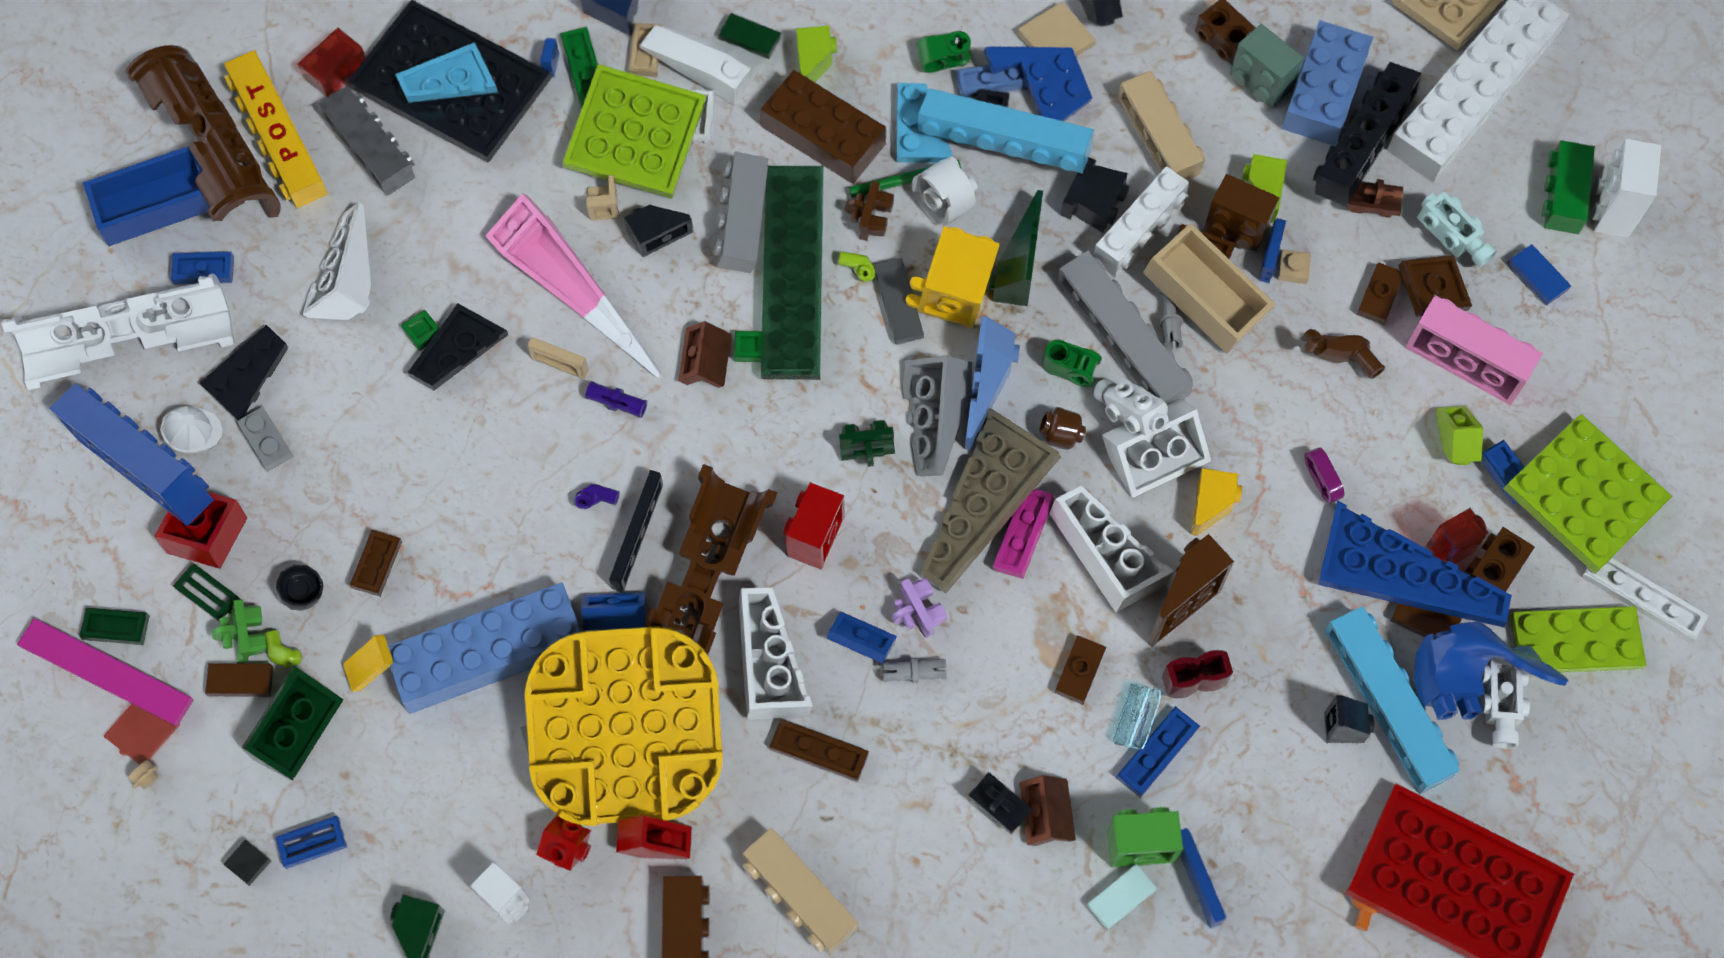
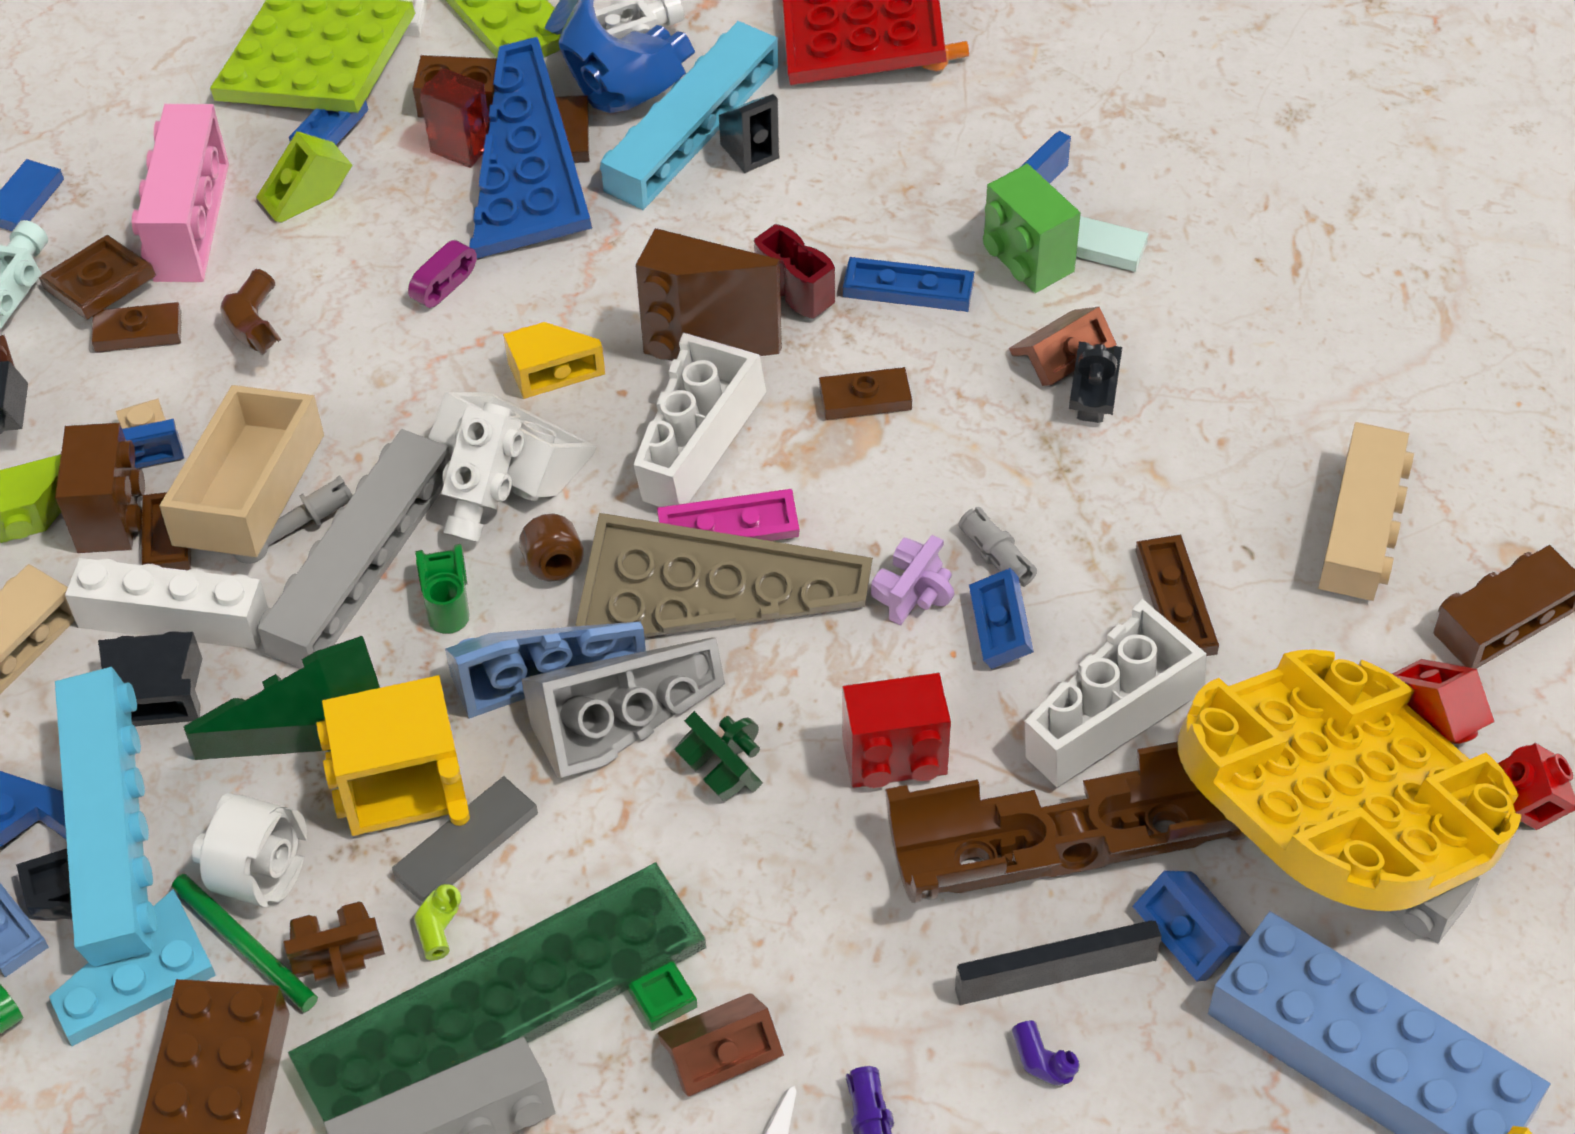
camera: 120 degrees left, 15 degrees down
(1132, 715) = (918, 306): clear light blue tile -> none

